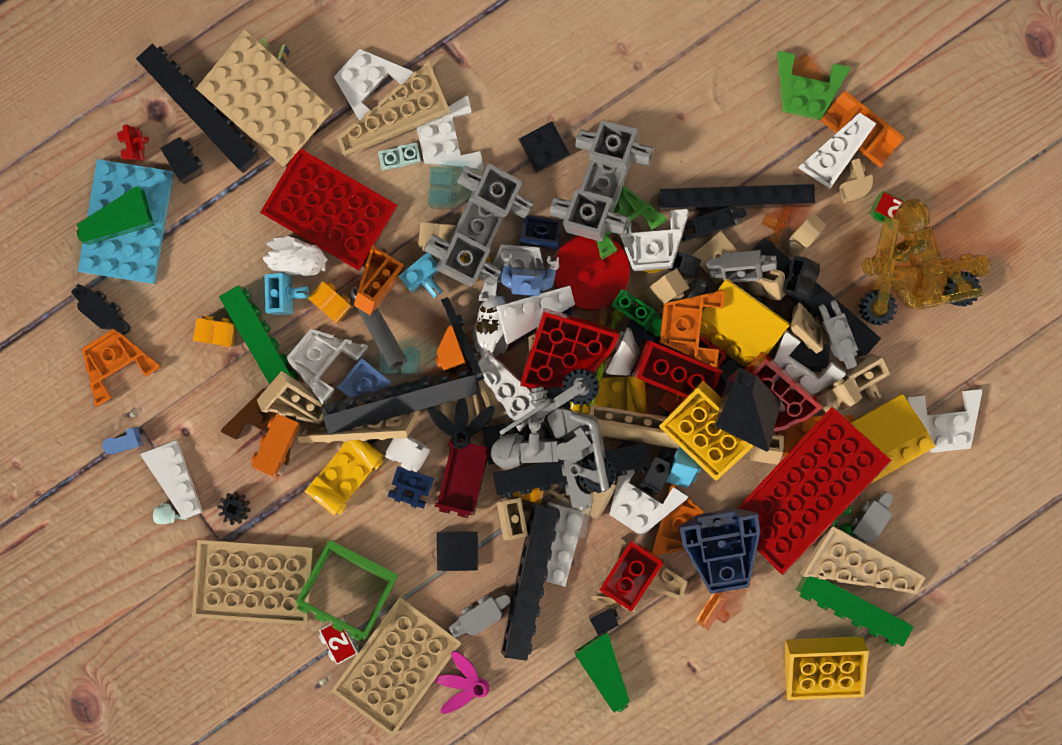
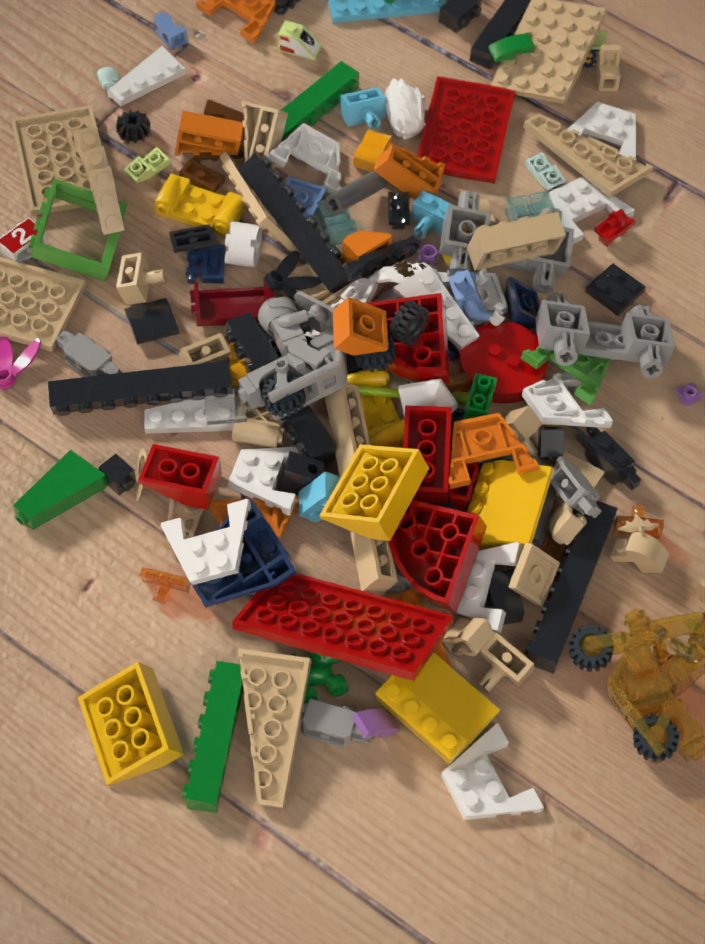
camera: 65 degrees right, 30 degrees down
(175, 325) = (298, 41): none -> slope
(215, 332) = (304, 70): light orange brick -> none
(255, 134) = (507, 48): none -> green slope
(282, 507) = (150, 165): none -> yellowish green slope
(295, 563) = (100, 179): none -> tan arch
(302, 53) = (607, 68): none -> tan brick
(311, 463) = (202, 176): none -> reddish brown plate
(385, 493) = (192, 238): none -> black slope
(405, 302) = (398, 210): none -> black hips
(413, 553) = (136, 278): none -> tan brick
(454, 294) = (428, 254): none -> medium lavender plate
(483, 122) = (613, 227): none -> red hips
(499, 223) = (516, 240): none -> tan brick
(570, 396) = (359, 328): none -> orange slope
(572, 351) = (409, 322): none -> black tyre
(669, 136) = (688, 399): none -> medium lavender plate
(711, 573) = (212, 553): none -> white wing
(737, 197) = (655, 483): black brick -> none
(748, 409) = (414, 508): black slope -> none
(788, 228) = (638, 525): none -> tan piece
(801, 278) = (587, 547): black brick -> none
(839, 335) = (540, 606): light grey hinge -> none
(886, 491) = (375, 722): none -> medium lavender slope

